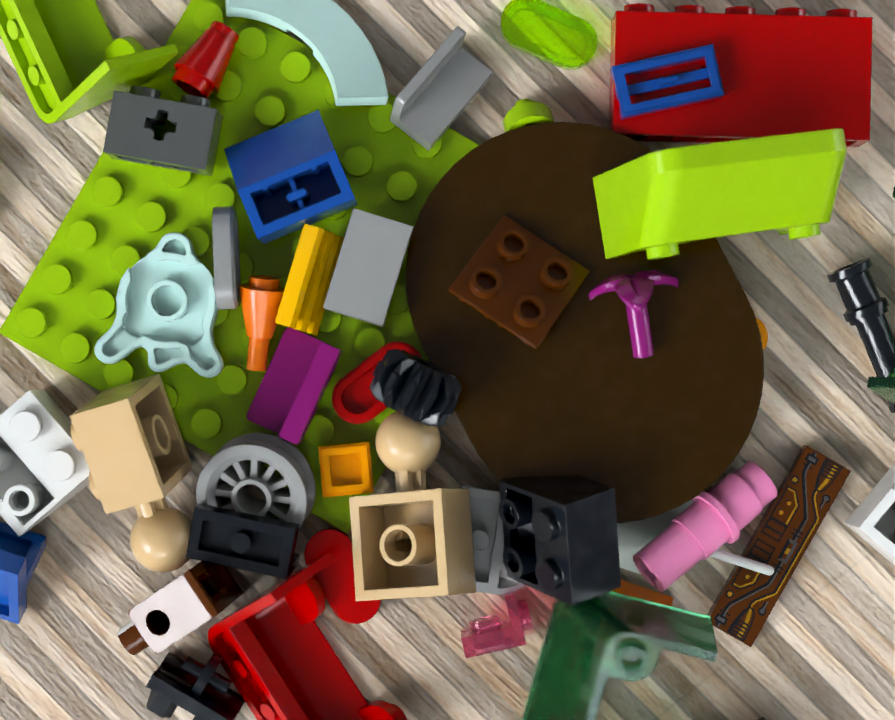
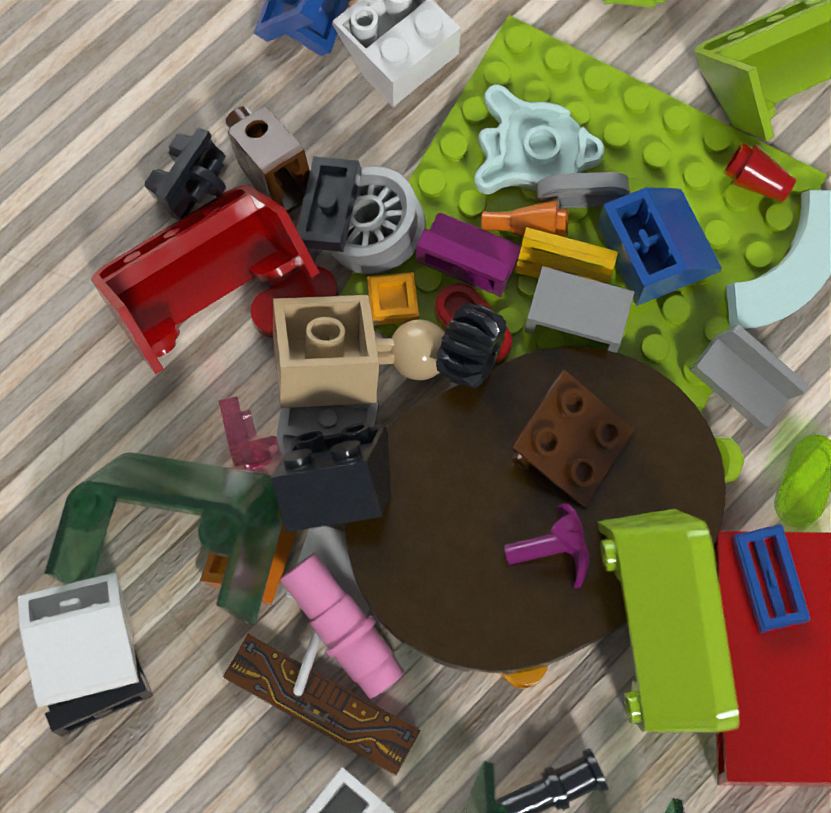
camera: 90 degrees right, 15 degrees down
(133, 139) = (692, 113): dark grey brick -> none
(136, 461) = (408, 110): tan brick -> none

